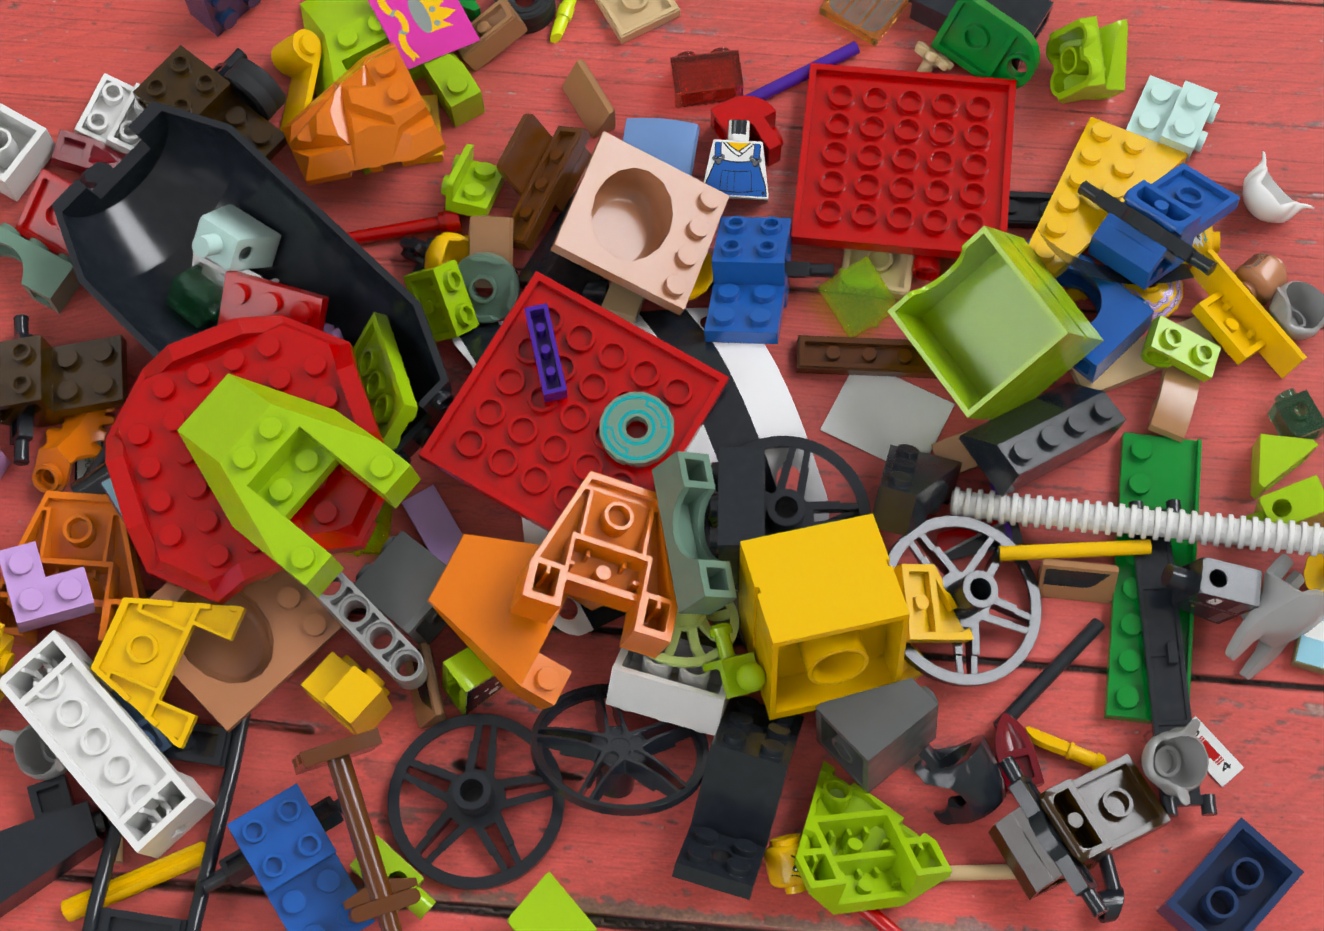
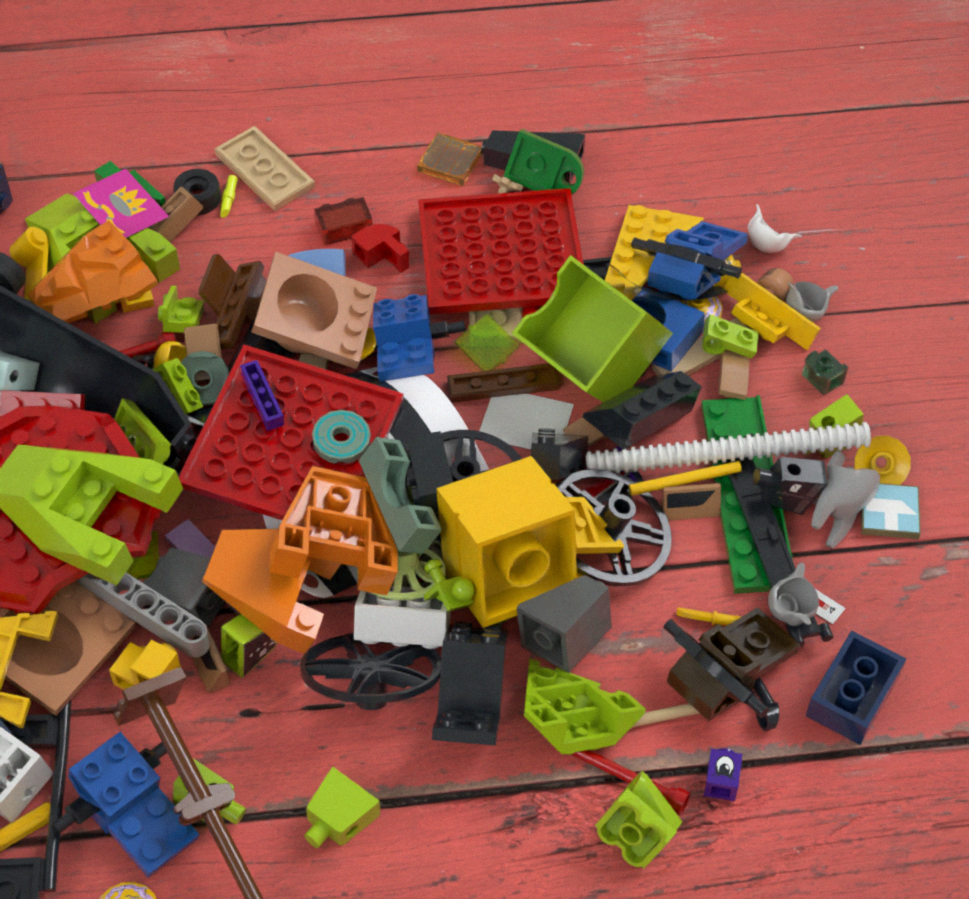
camera: 15 degrees left, 15 degrees down
(473, 802) = (265, 732): black wheel -> none
(589, 100) = (256, 244): medium nougat slope -> none
(738, 165) = (380, 269): torso -> none
(780, 863) = (518, 731): yellow head -> none
(802, 74) = (414, 209): dark purple bar -> none
(970, 772) = (652, 642): black piece -> none
(1014, 741) = (665, 611): dark red plate -> none
(1053, 670) = (685, 571): black bar -> none
(1088, 60) = (618, 166): lime piece -> none
(1174, 114) = (688, 195): light aqua plate -> none
(1275, 458) = (816, 396): lime slope -> none

